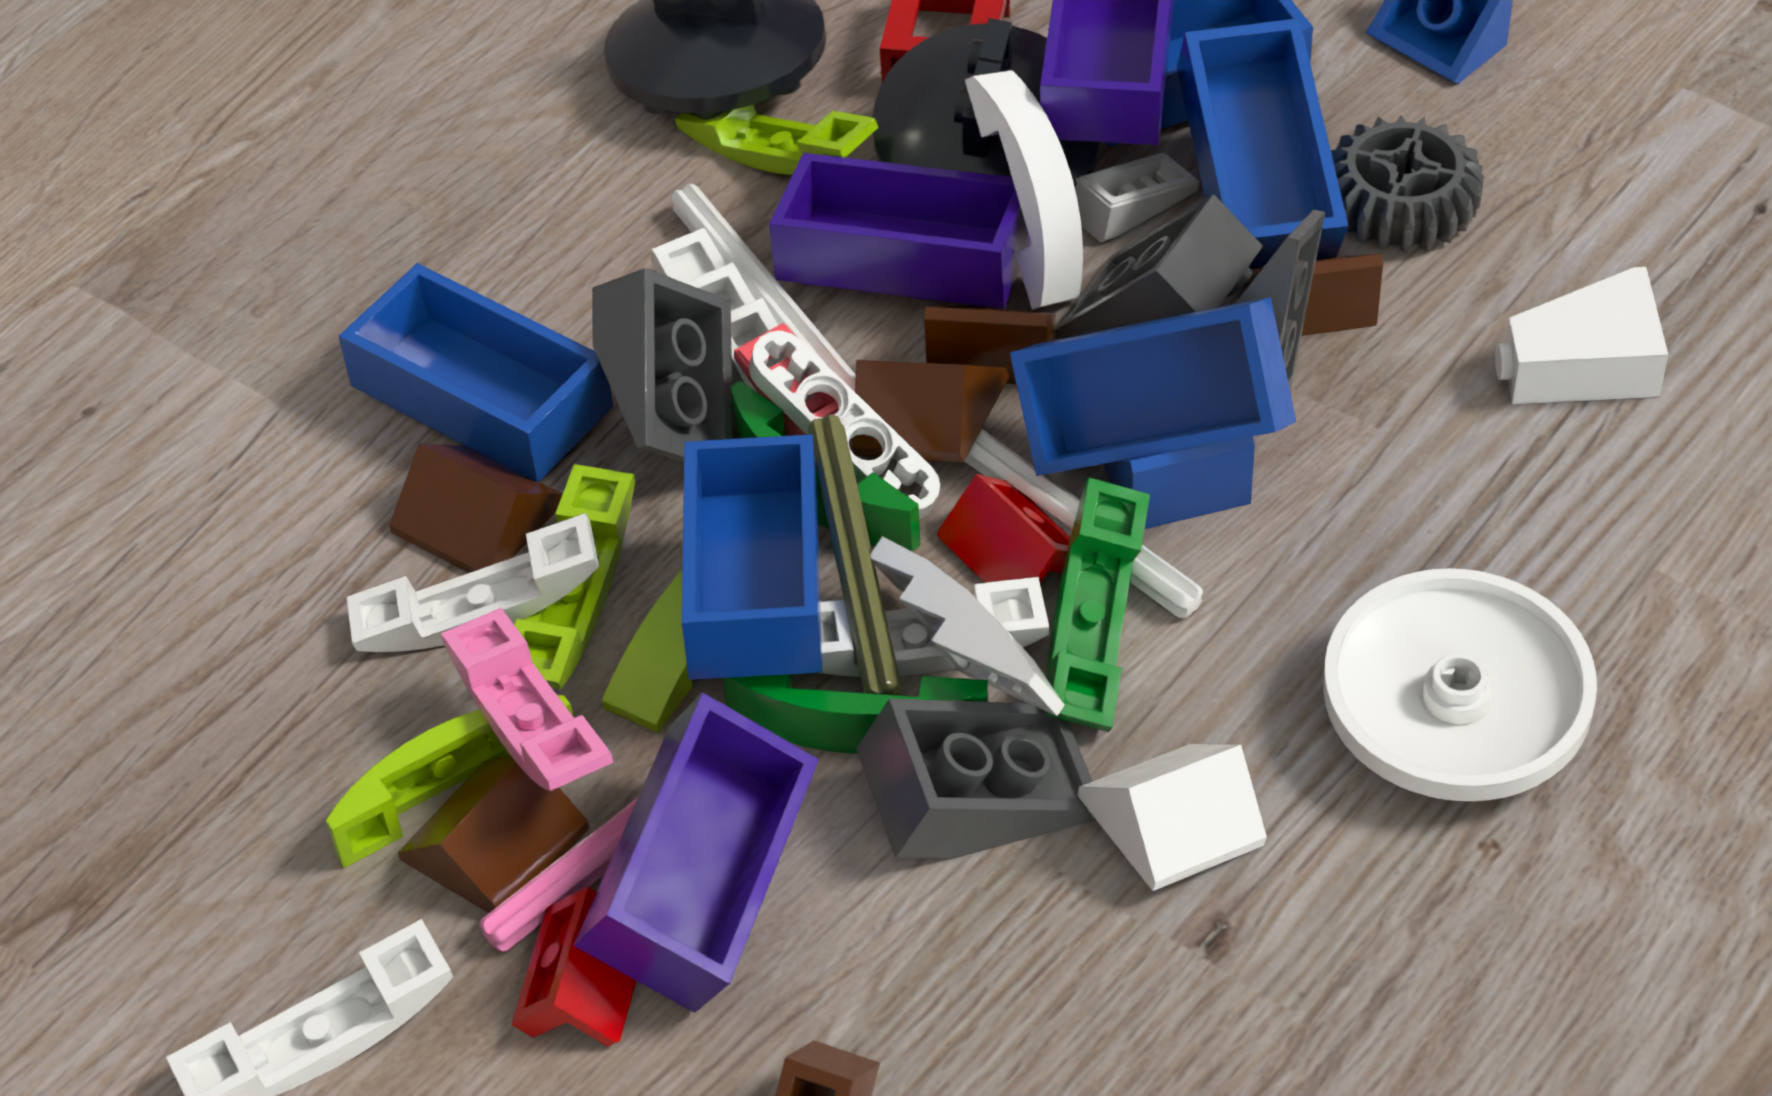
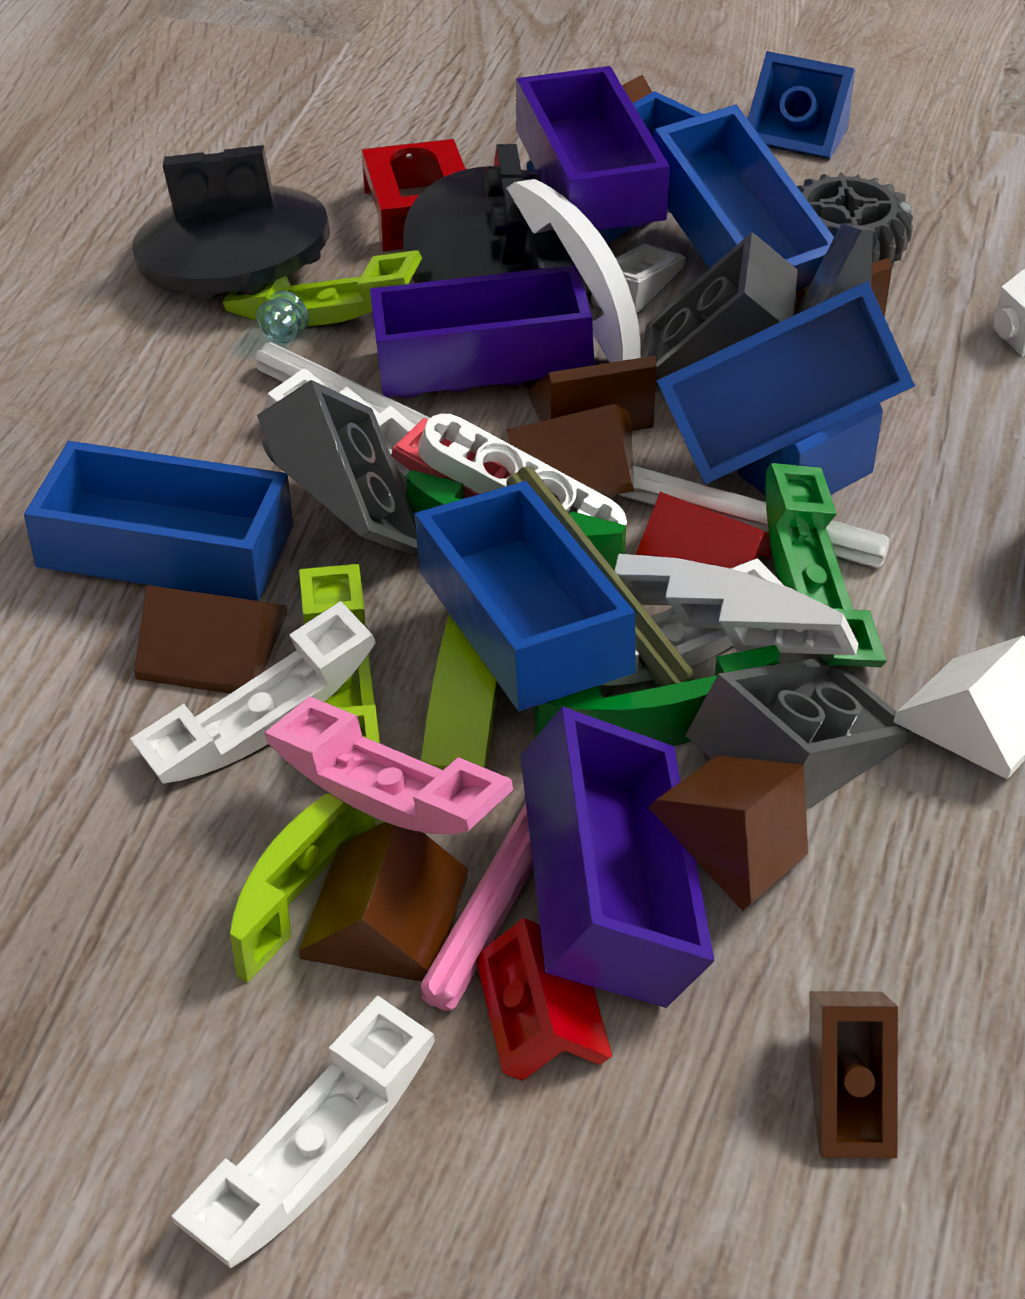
camera: 25 degrees left, 5 degrees down
(722, 154) = (282, 316): none -> clear light blue bush
(839, 857) = (740, 822): none -> reddish brown slope

